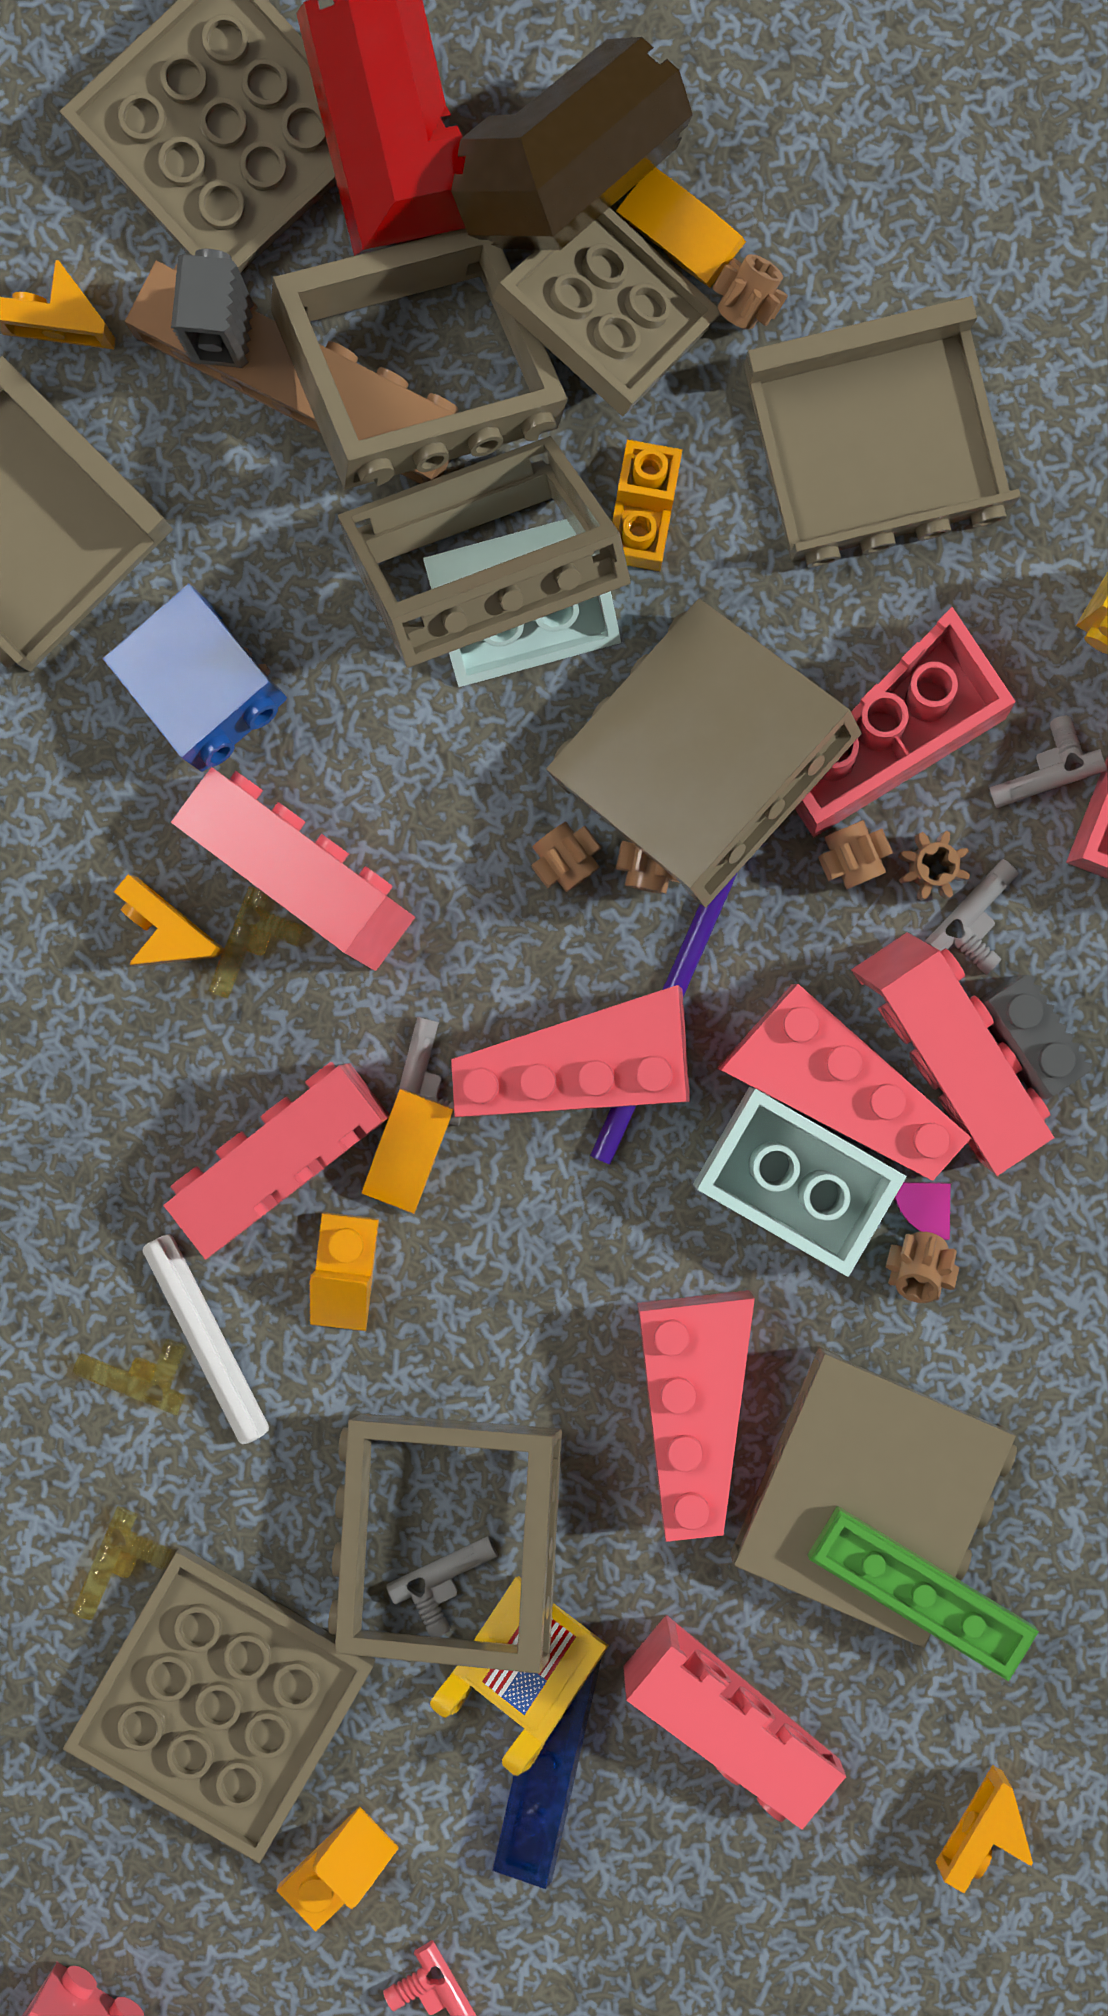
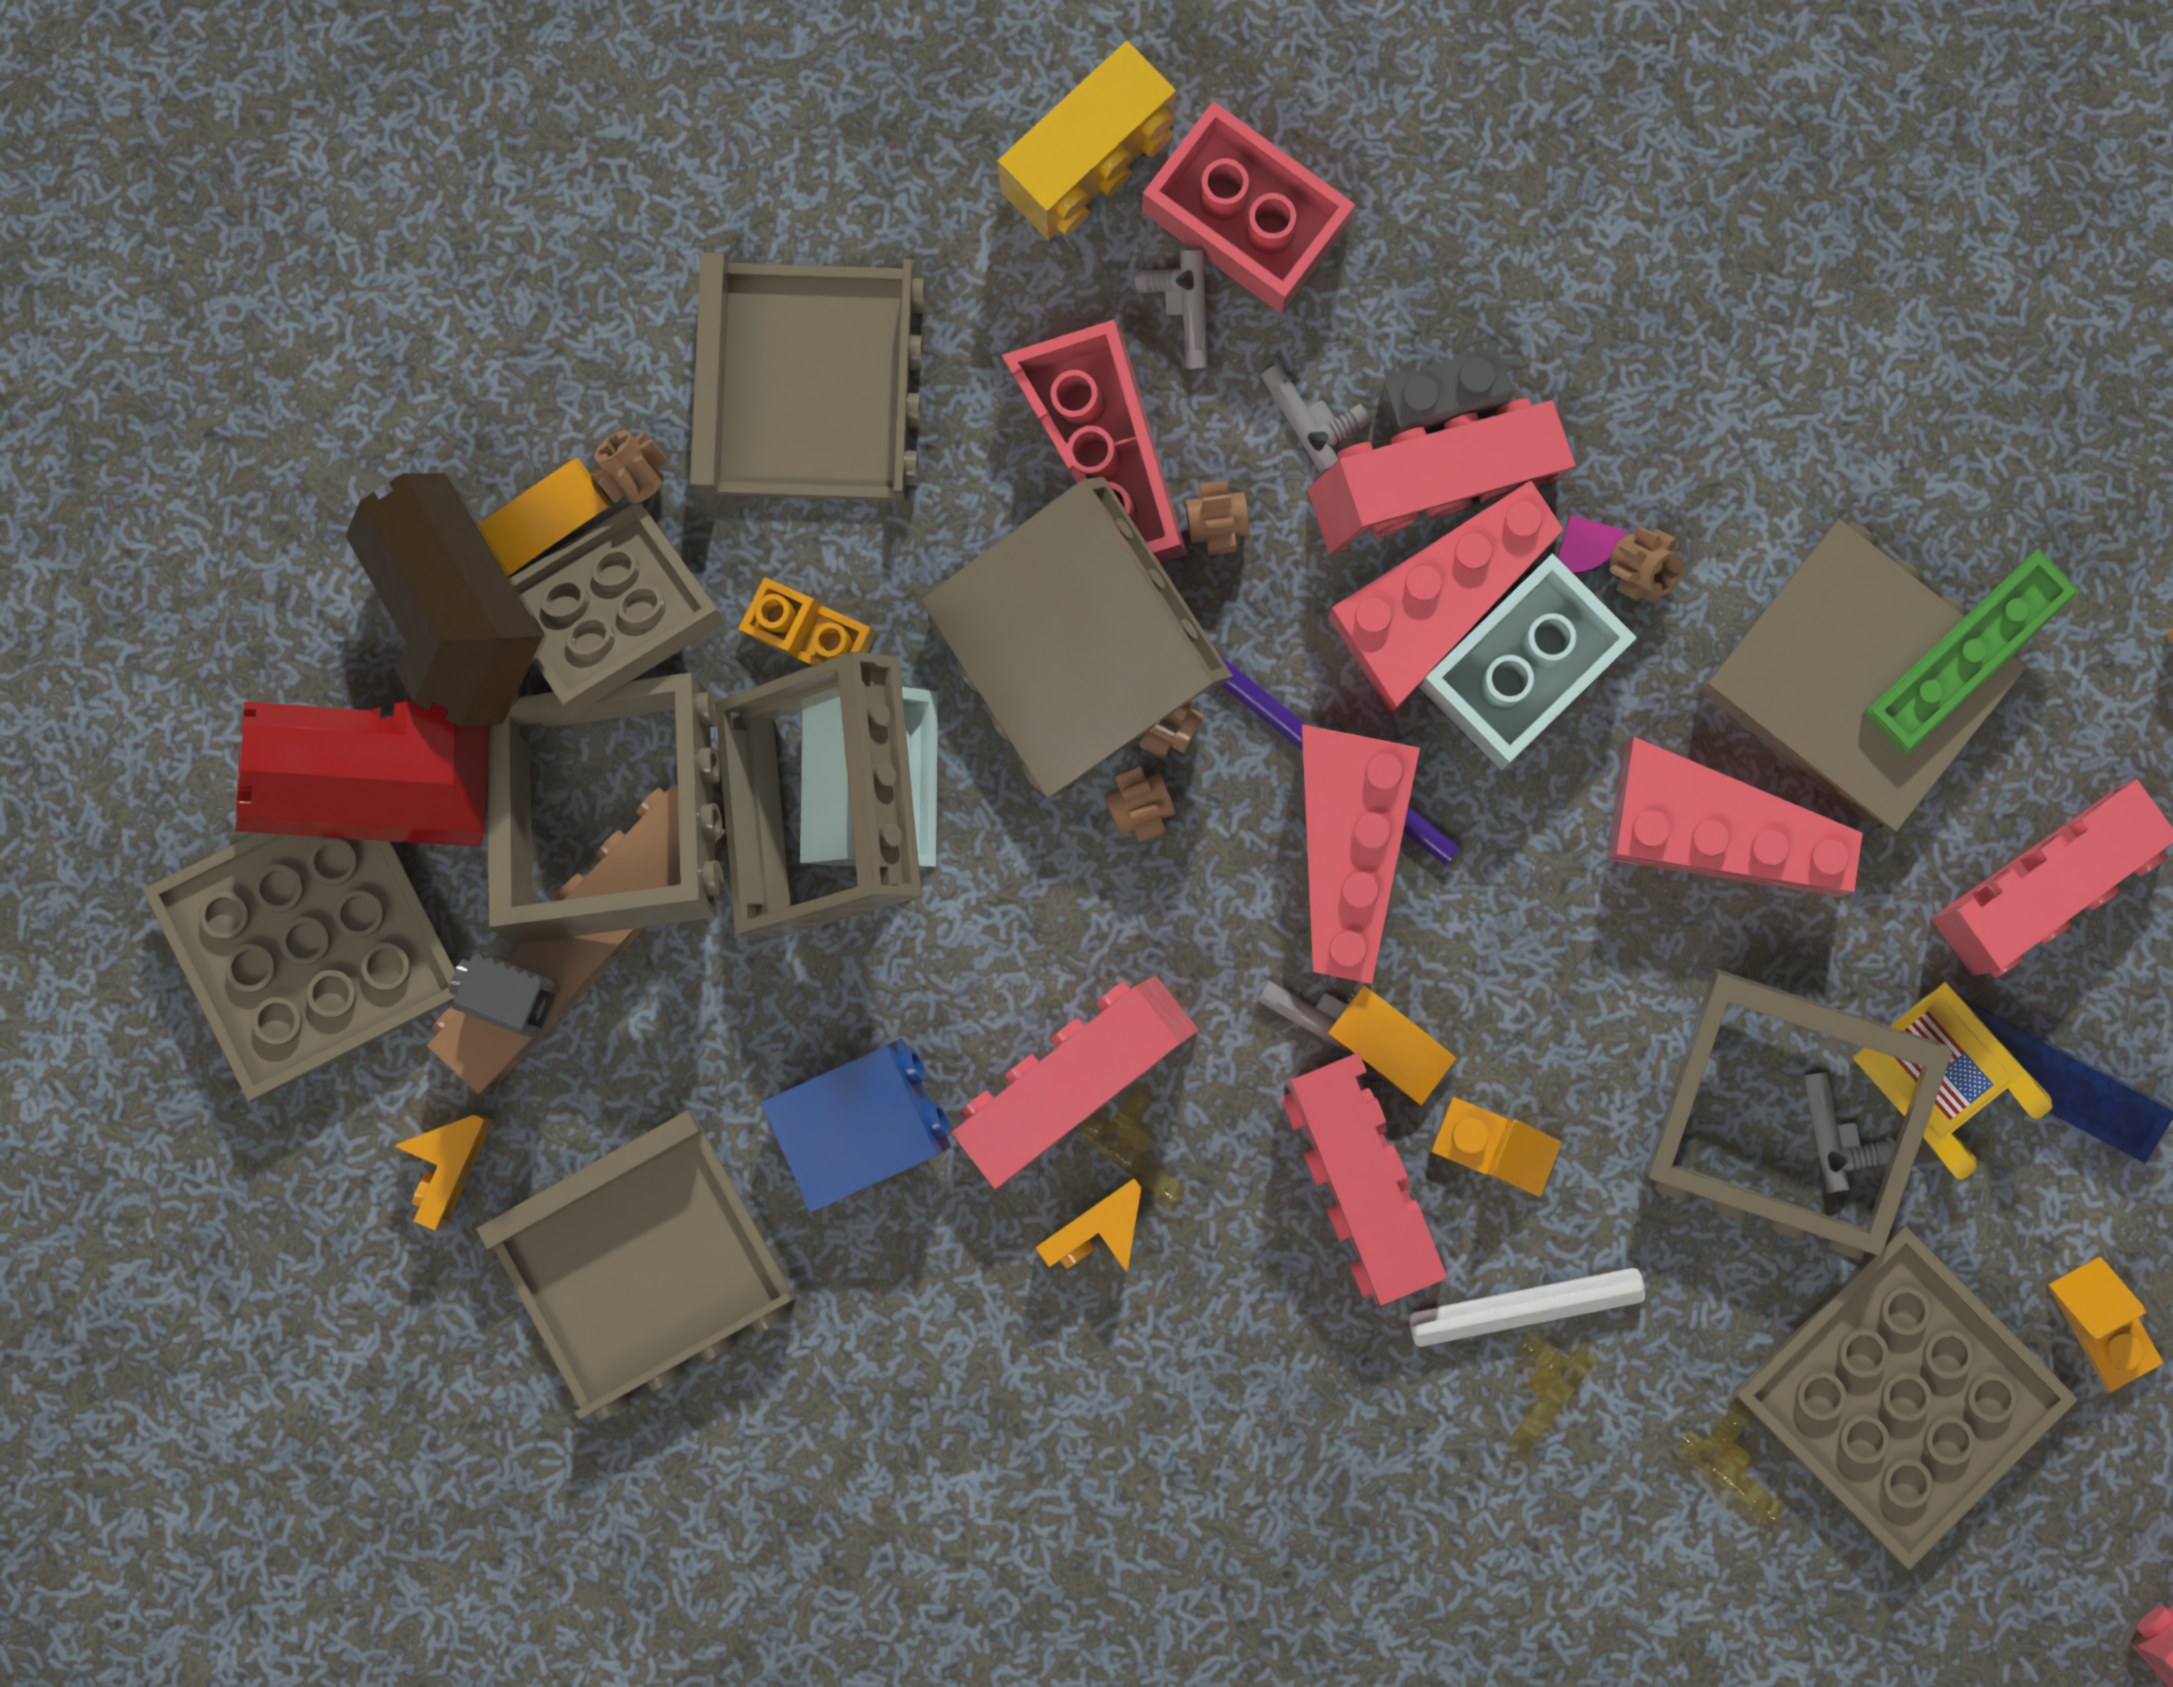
camera: 70 degrees left, 5 degrees down
(919, 872) = (1253, 459): medium nougat gear -> none

